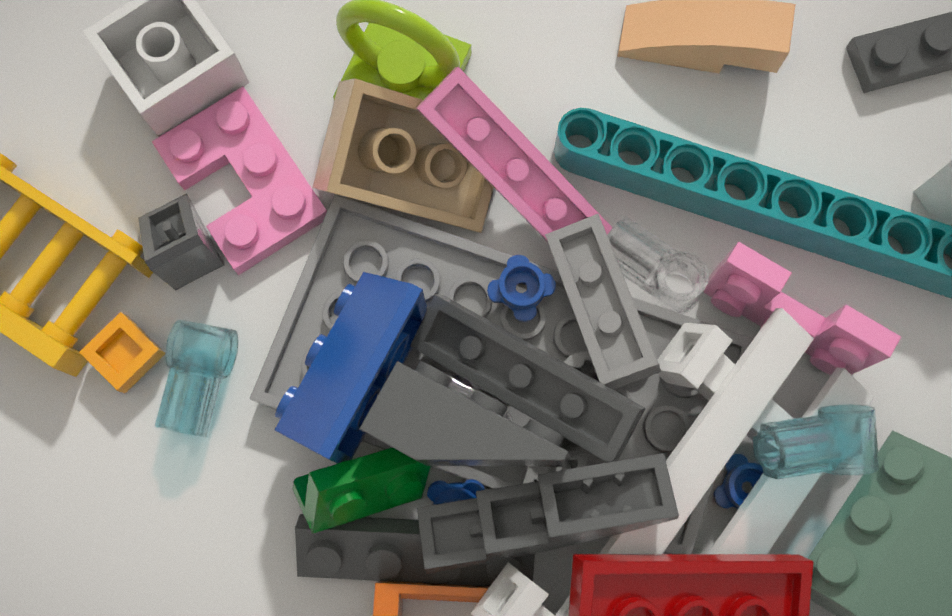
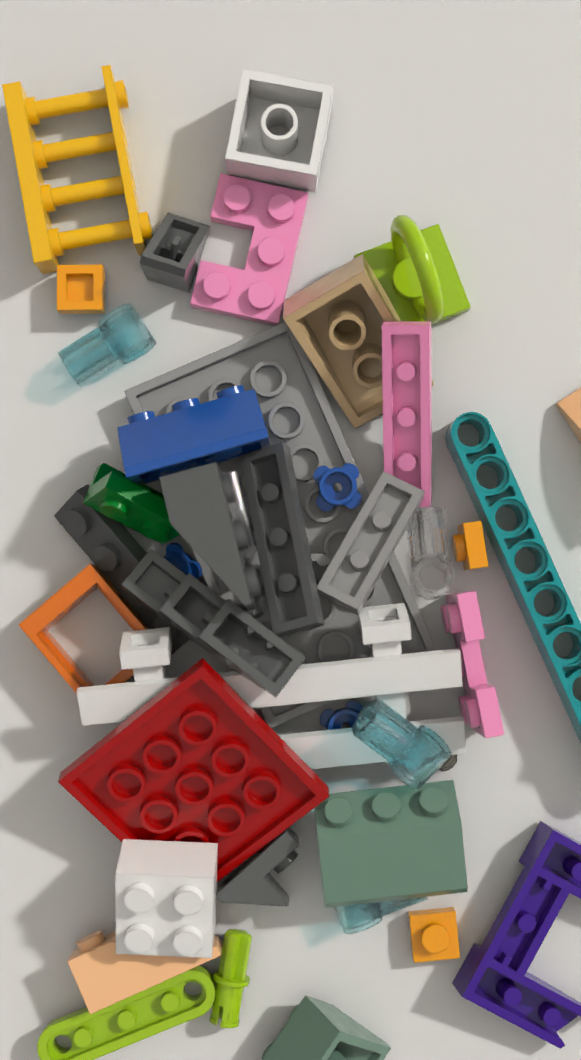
camera: 45 degrees right, 10 degrees up
(680, 224) = (470, 545): none -> light orange plate

